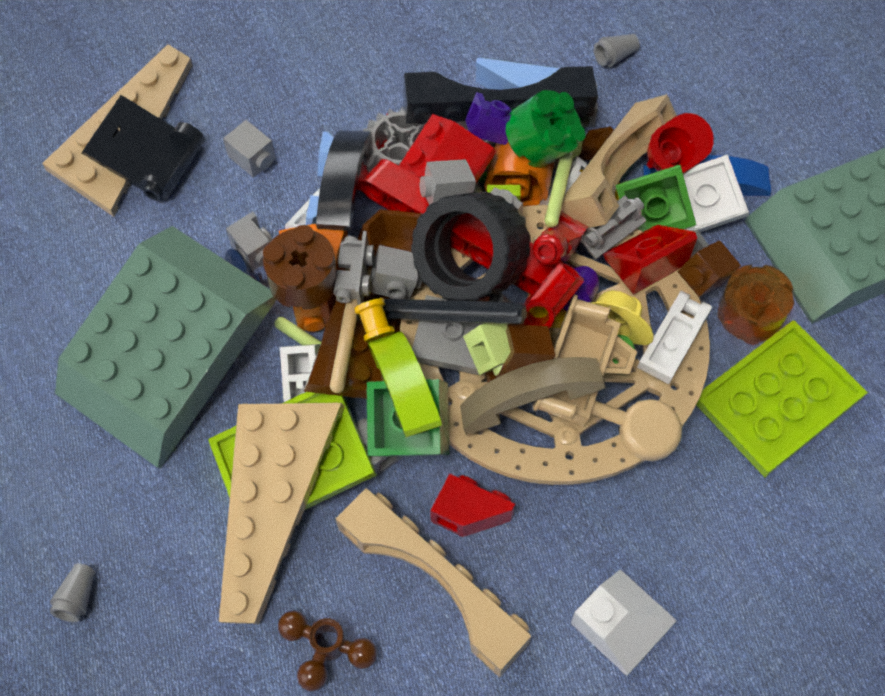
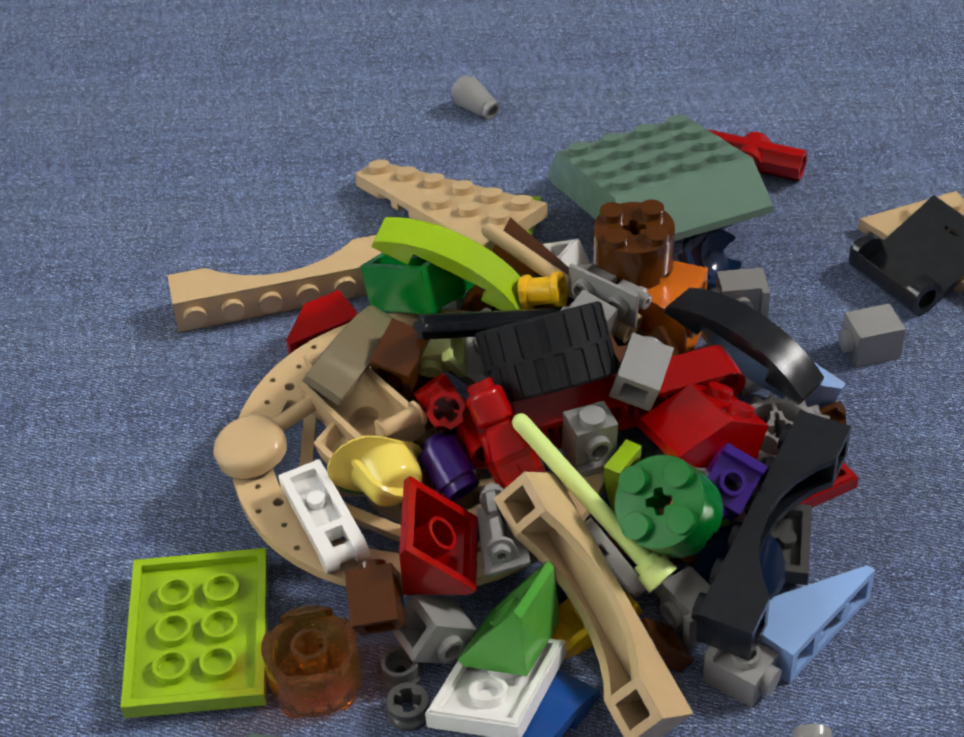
camera: 125 degrees right, 20 degrees down
(59, 313) = (768, 156): none -> red piece
(312, 673) = (300, 204): reddish brown piece -> none
(622, 621) = (130, 385): white slope -> none
(680, 142) = (569, 679): red piece -> none
(738, 243) = (405, 693): none -> dark grey bush

